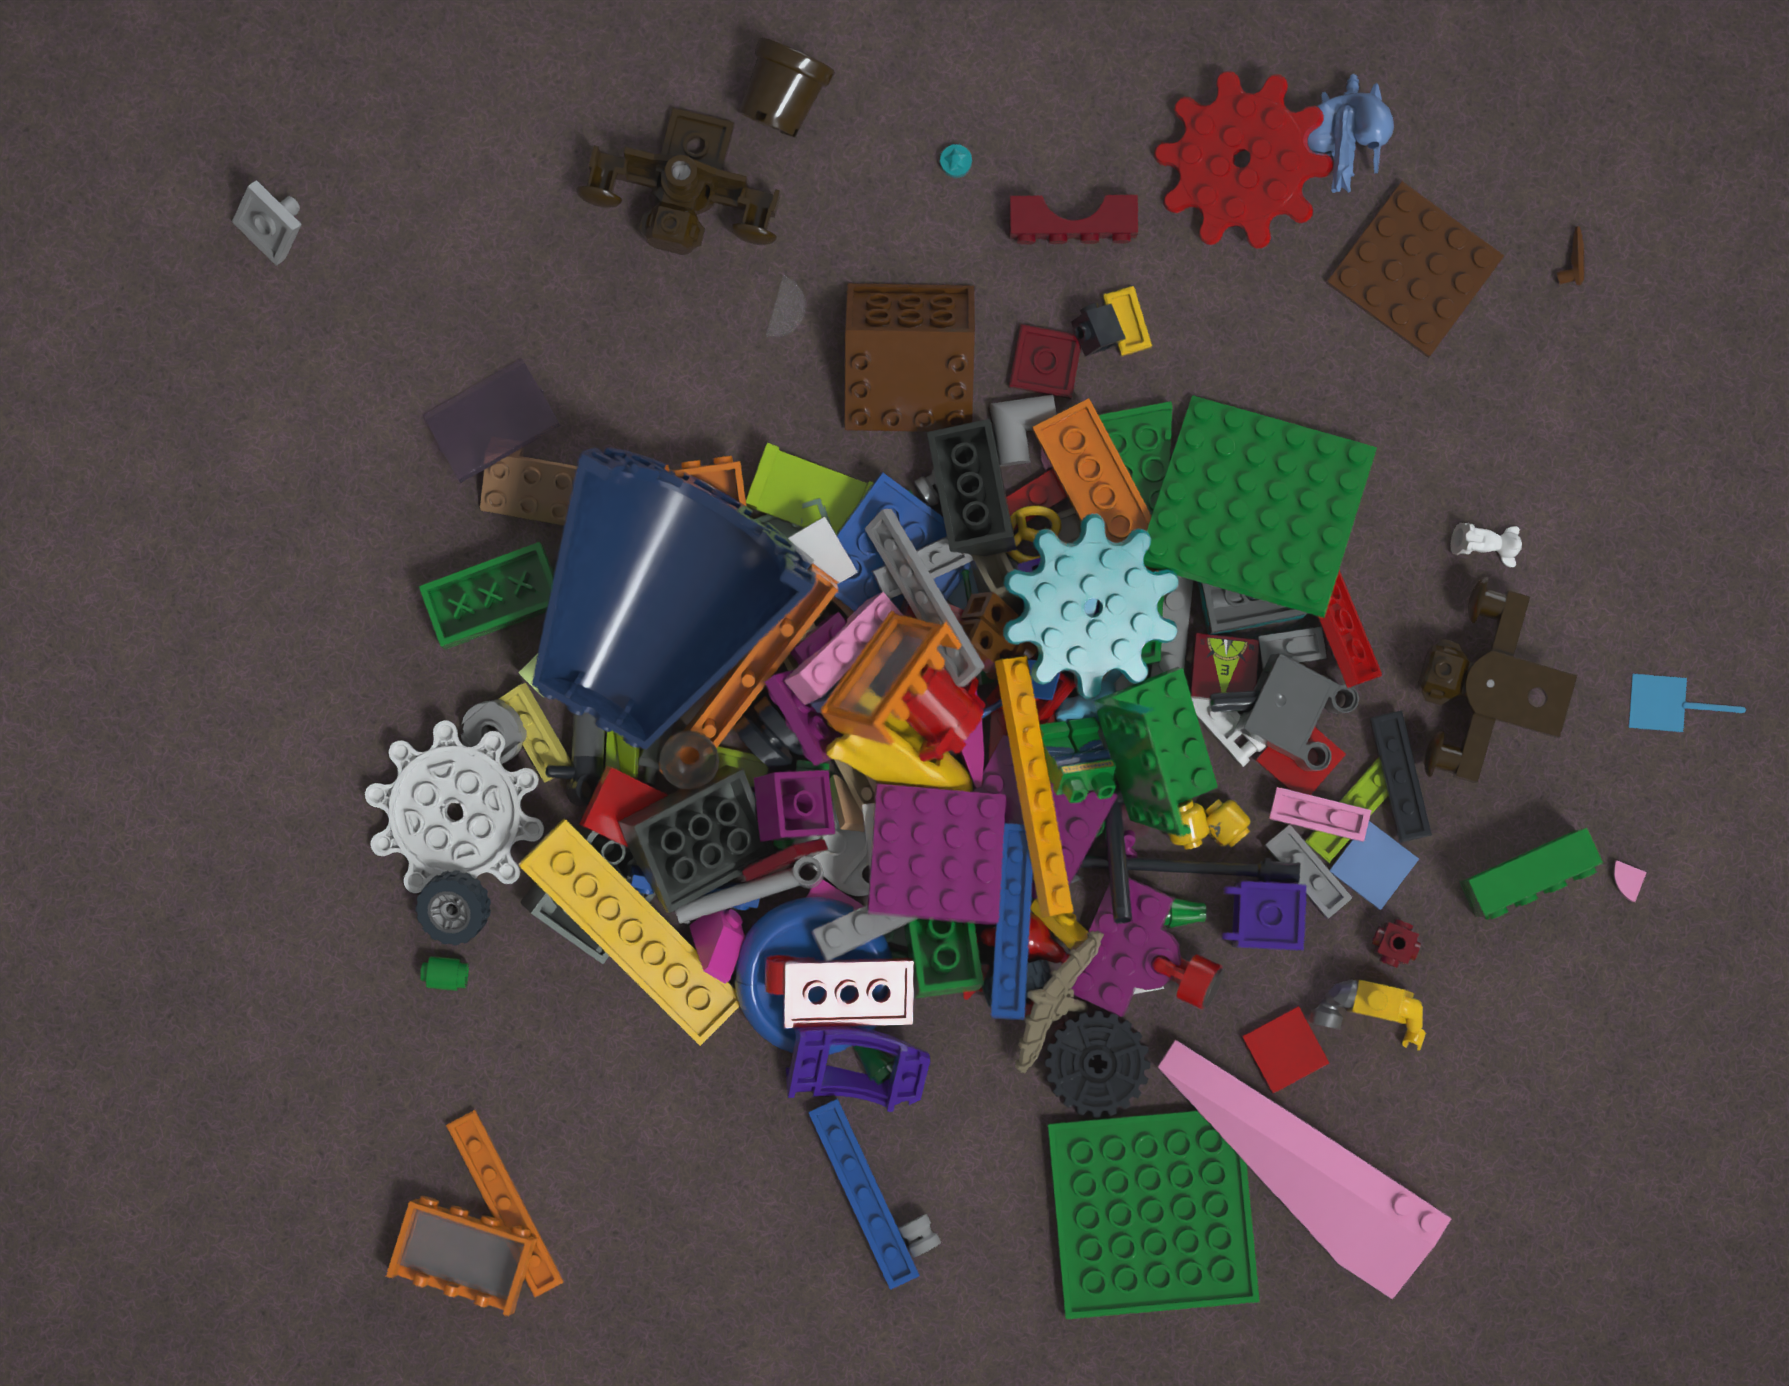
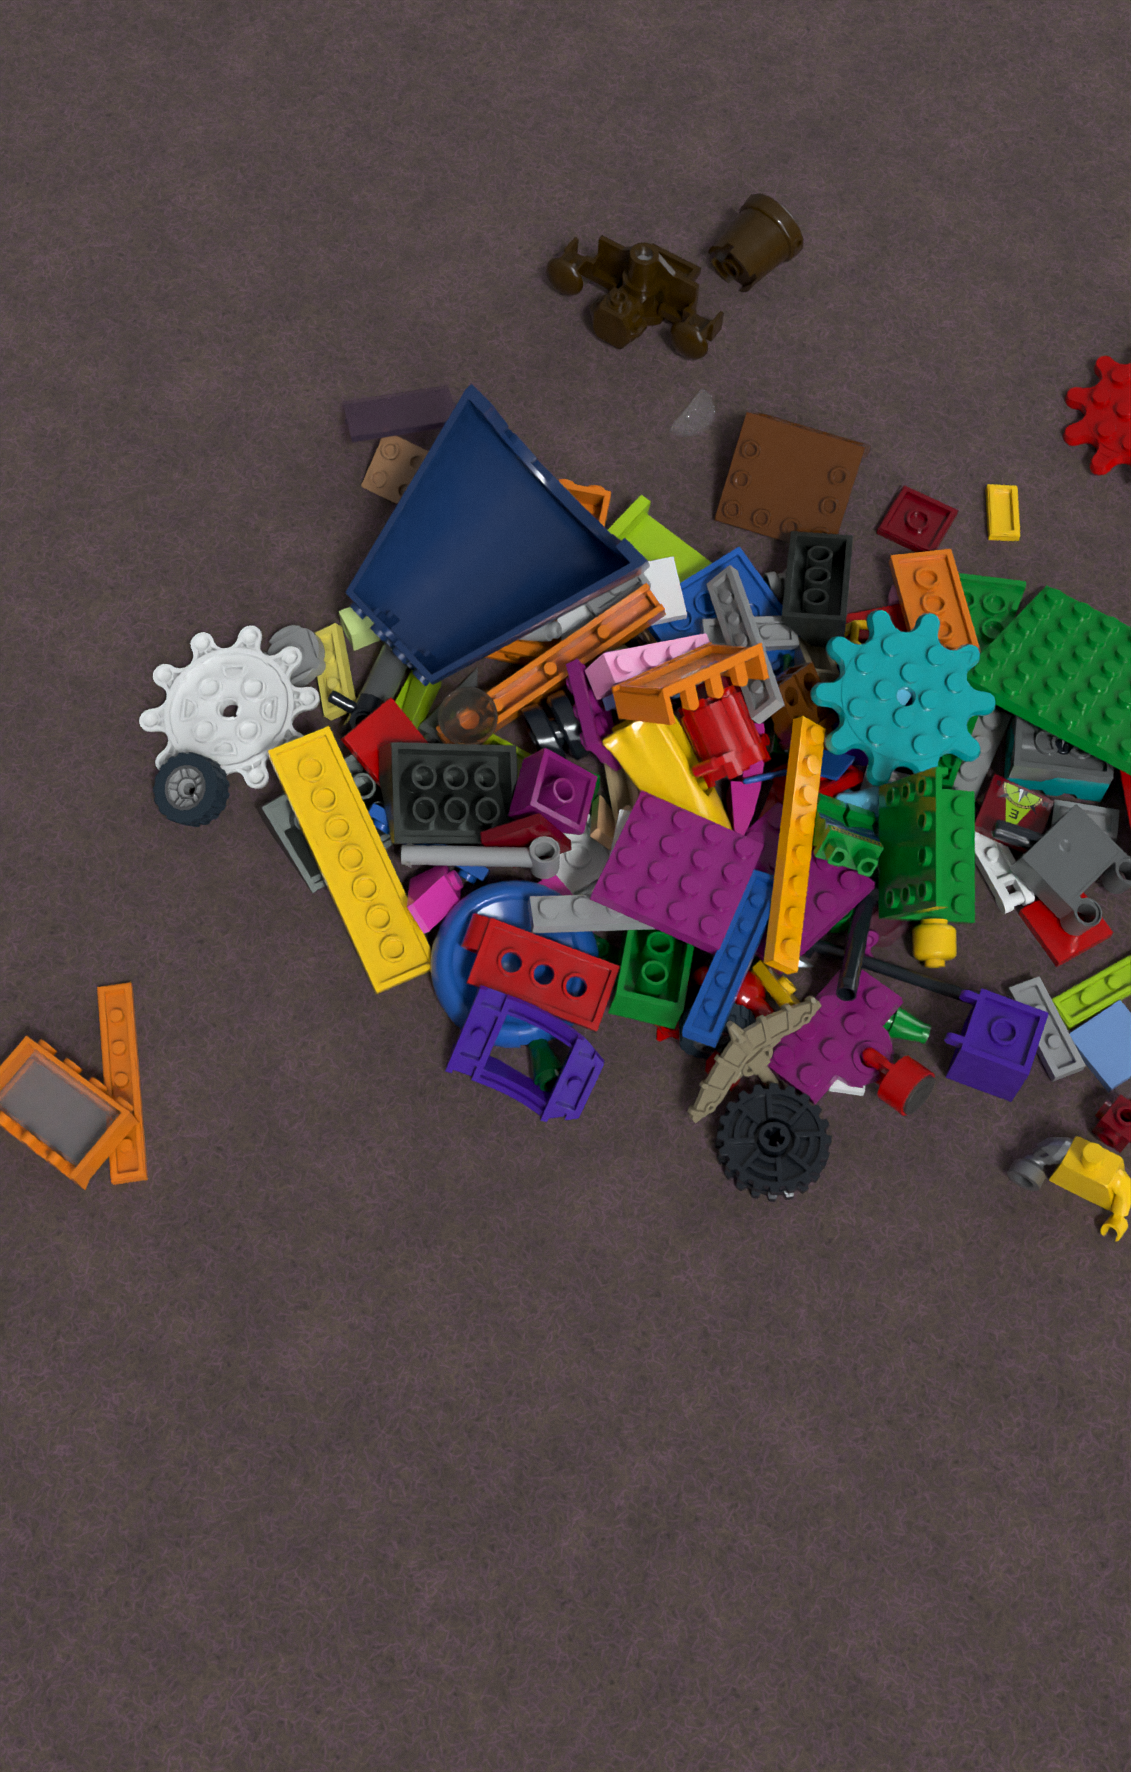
camera: 15 degrees right, 20 degrees down
(268, 222) = (274, 218): light grey tile -> none
(445, 973) = (158, 848): green brick -> none
(489, 595) = (326, 543): green brick -> none
(864, 1194) = (487, 1194): blue plate -> none
(917, 1228) = (530, 1252): light grey wheel -> none
(956, 161) = (885, 350): teal tile -> none
(1011, 422) = (869, 560): light grey brick -> none
(1034, 220) = (945, 411): dark red arch -> none
(1097, 329) = (975, 505): black brick -> none
(1150, 1216) = (785, 1315): green plate -> none
(1227, 822) = (975, 957): yellow head -> none
(1285, 1049) = (973, 1195): red tile -> none
(1320, 814) = (1073, 974): bright pink plate -> none
(1340, 1199) = (1000, 1369): bright pink wedge -> none

